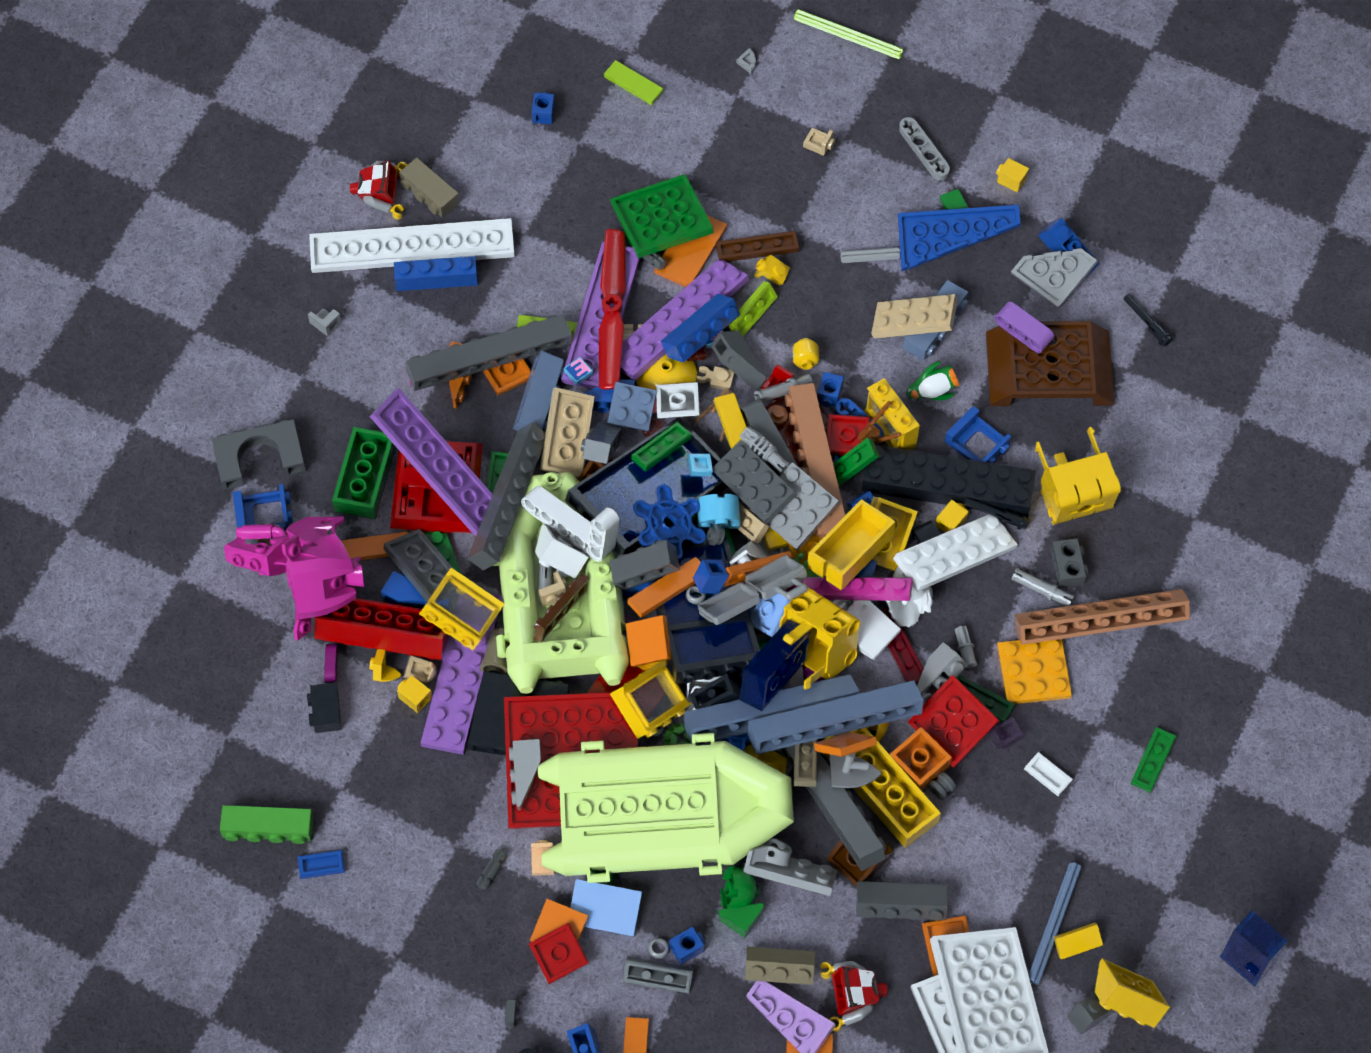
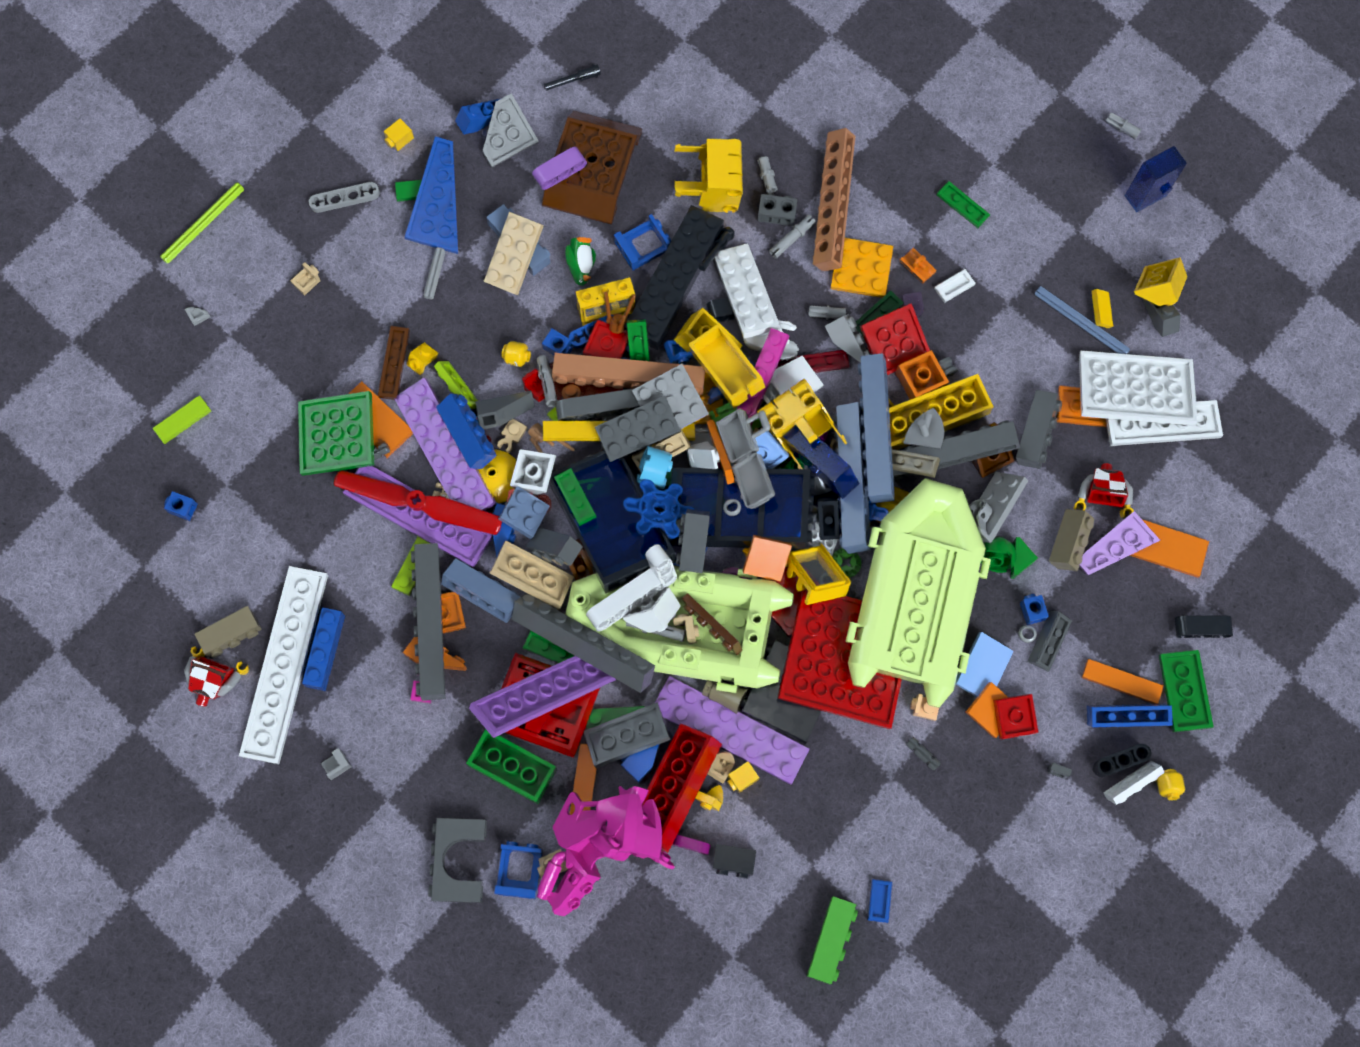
camera: 75 degrees left, 10 degrees up
(461, 609) = (685, 712): yellow window -> none
(526, 760) = (848, 695): light grey slope -> none
(578, 371) = (471, 548): tile -> none
(664, 589) = (720, 528): orange tile -> none
(700, 465) = (604, 469): medium azure plate -> none
(710, 576) = (725, 487): blue brick -> none
(715, 535) = (679, 475): dark grey plate -> none
(764, 449) = (610, 410): light grey hinge -> none
(845, 744) = (908, 425): orange tile -> none
(951, 517) = (709, 285): yellow brick -> none
(1054, 725) = (918, 265): none -> orange hips
(1108, 543) = (767, 175): none -> light grey pin
(1326, 915) = (1123, 126): none -> light grey axle

